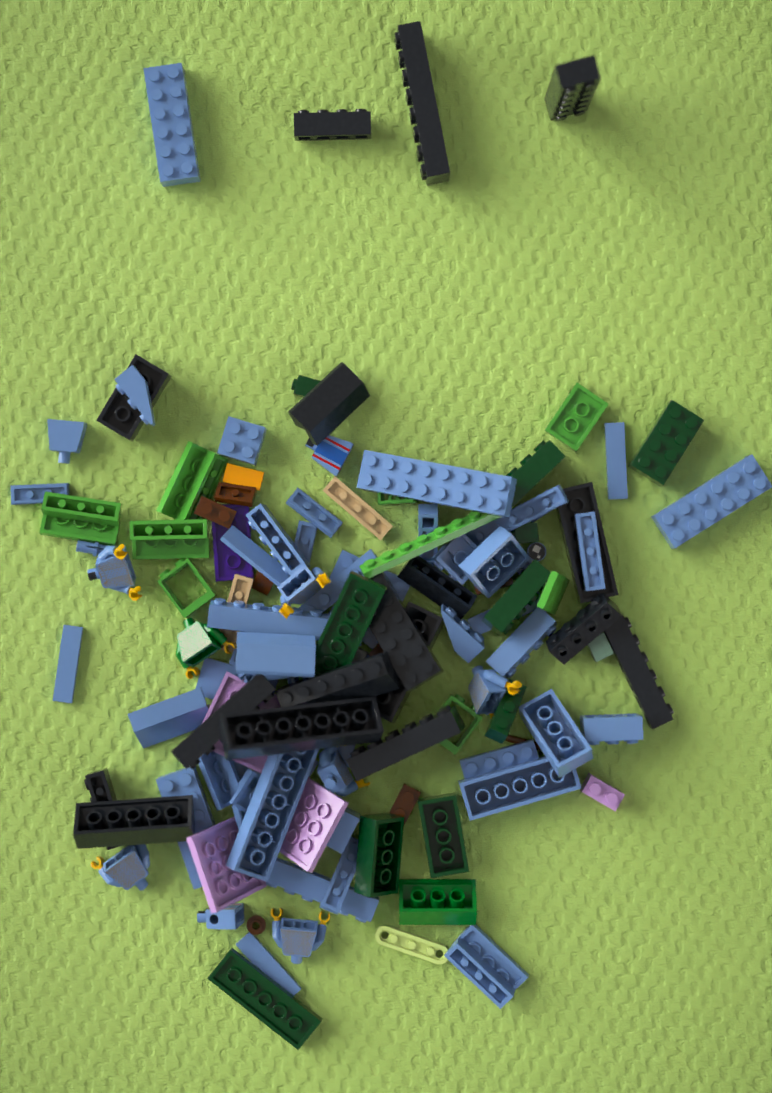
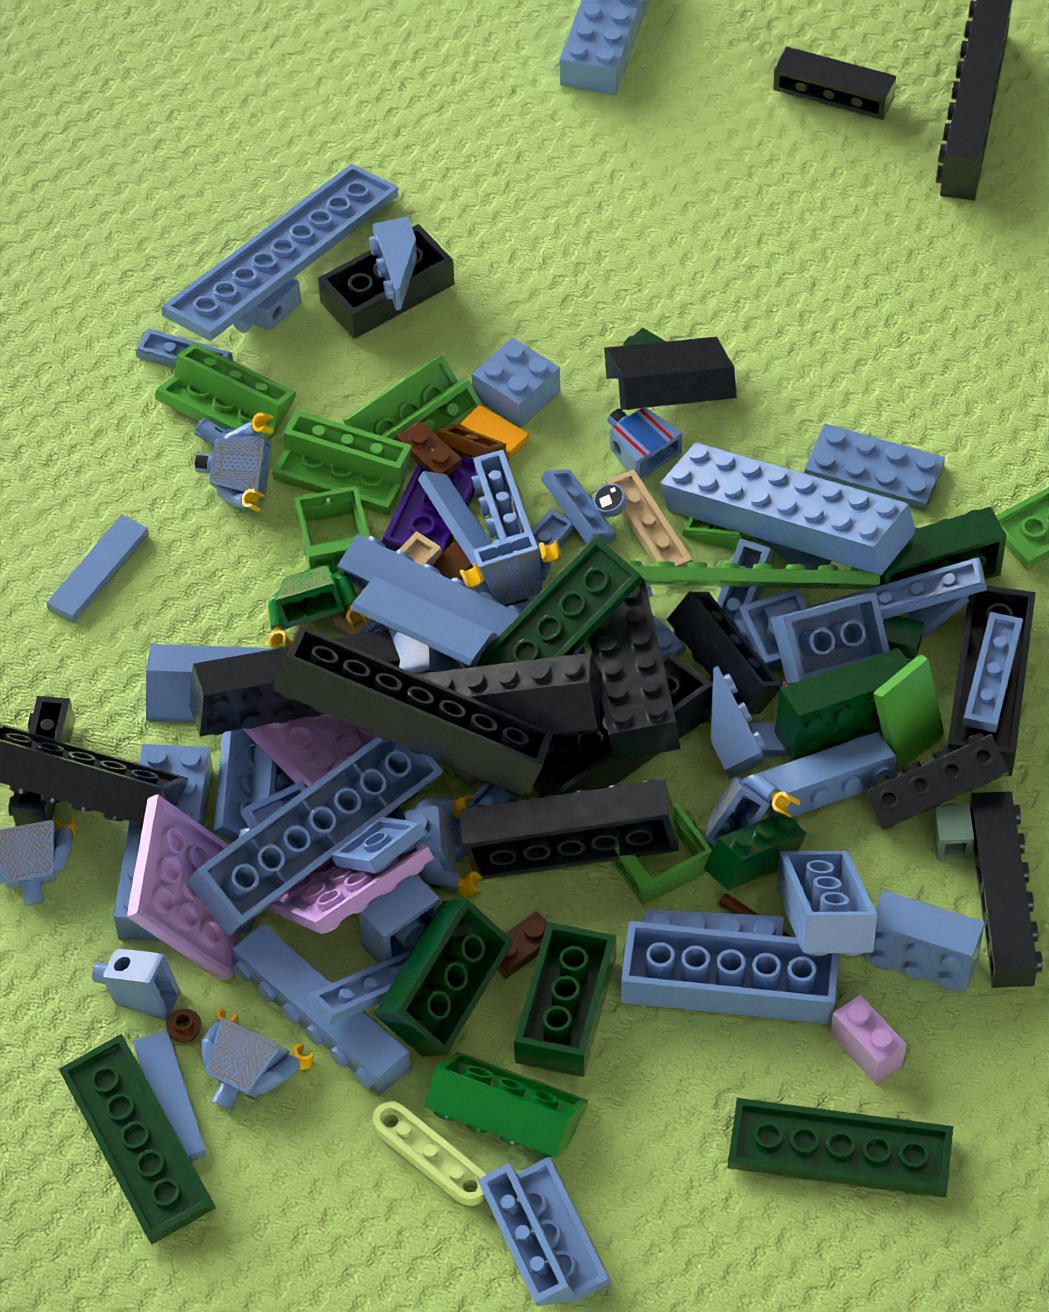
camera: 20 degrees right, 35 degrees down
(64, 406) = (279, 252): none -> medium blue plate
(315, 805) = (378, 845): none -> medium blue plate
(331, 505) = (610, 500): none -> tile
(466, 413) = (875, 466): none -> medium blue plate
(610, 856) = (841, 1147): none -> dark green plate

